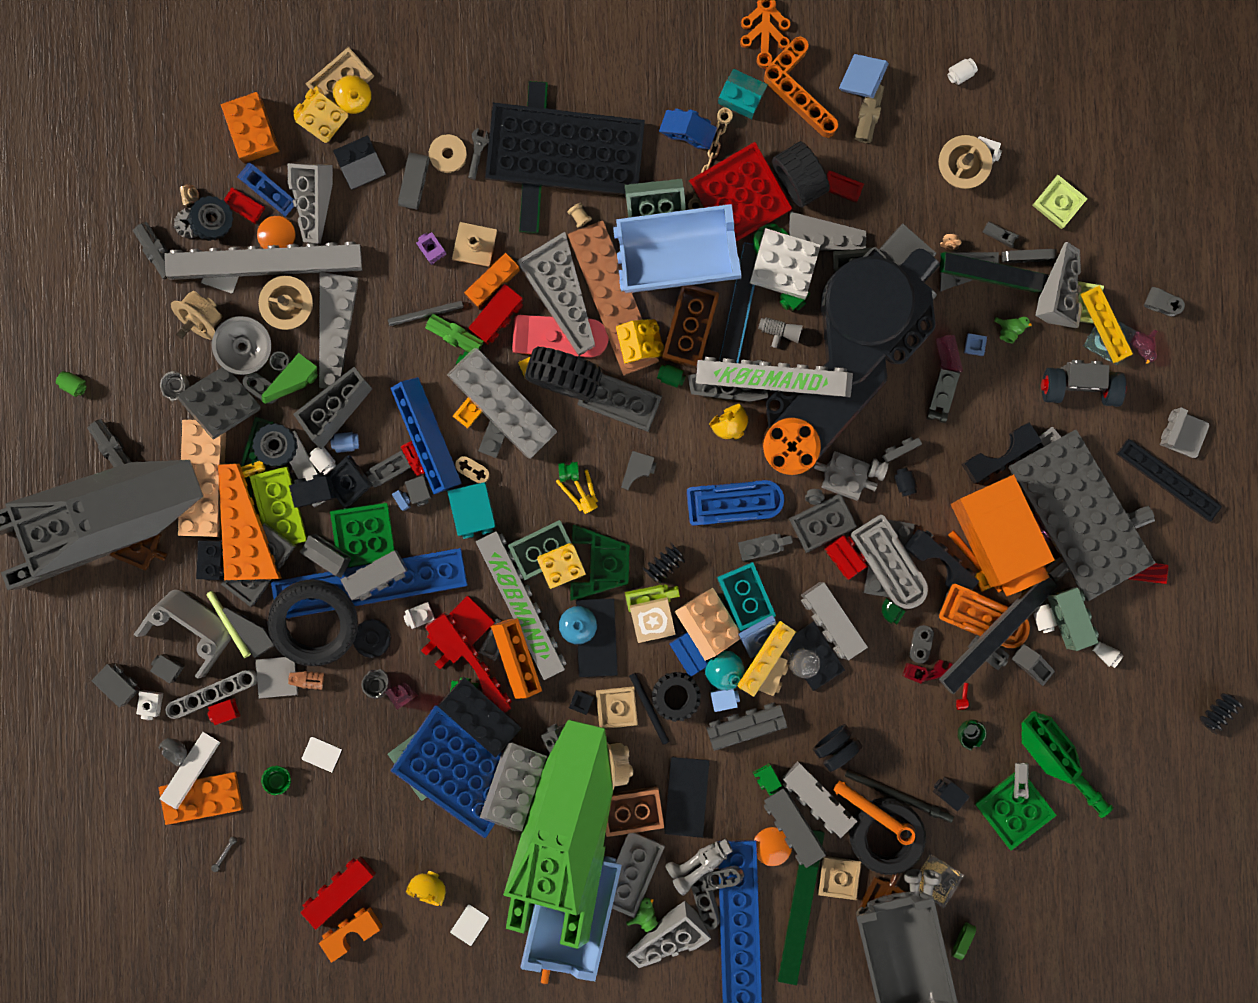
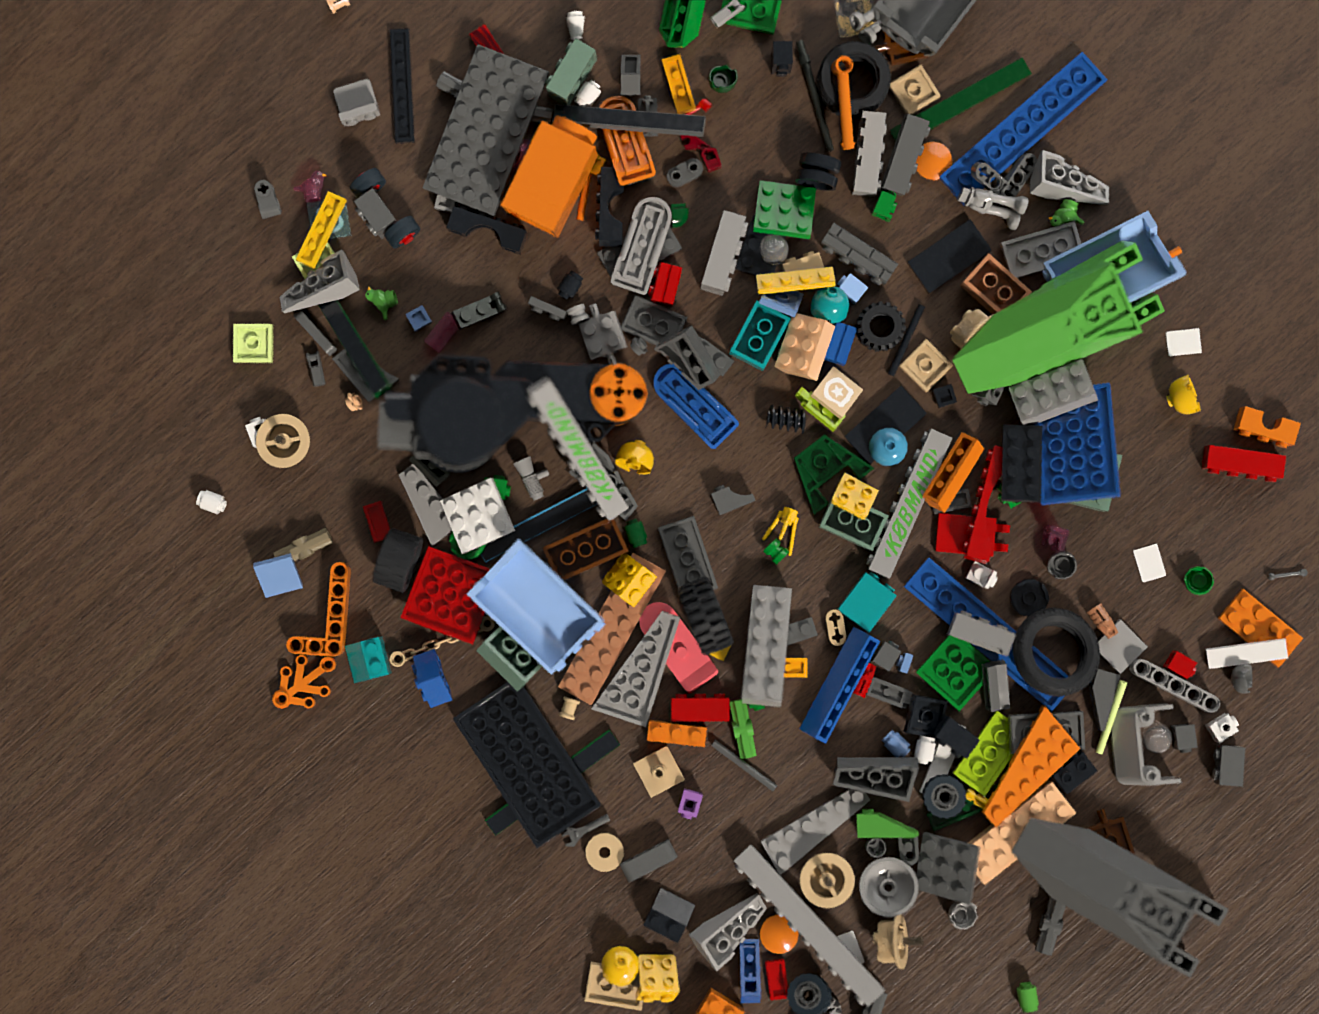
camera: 120 degrees left, 0 degrees up
(183, 647) = (1157, 737): none -> clear hair
(773, 528) = (690, 357): none -> dark grey wedge
(828, 697) = (784, 209): none -> green plate
(995, 696) = (678, 84): none -> light orange plate

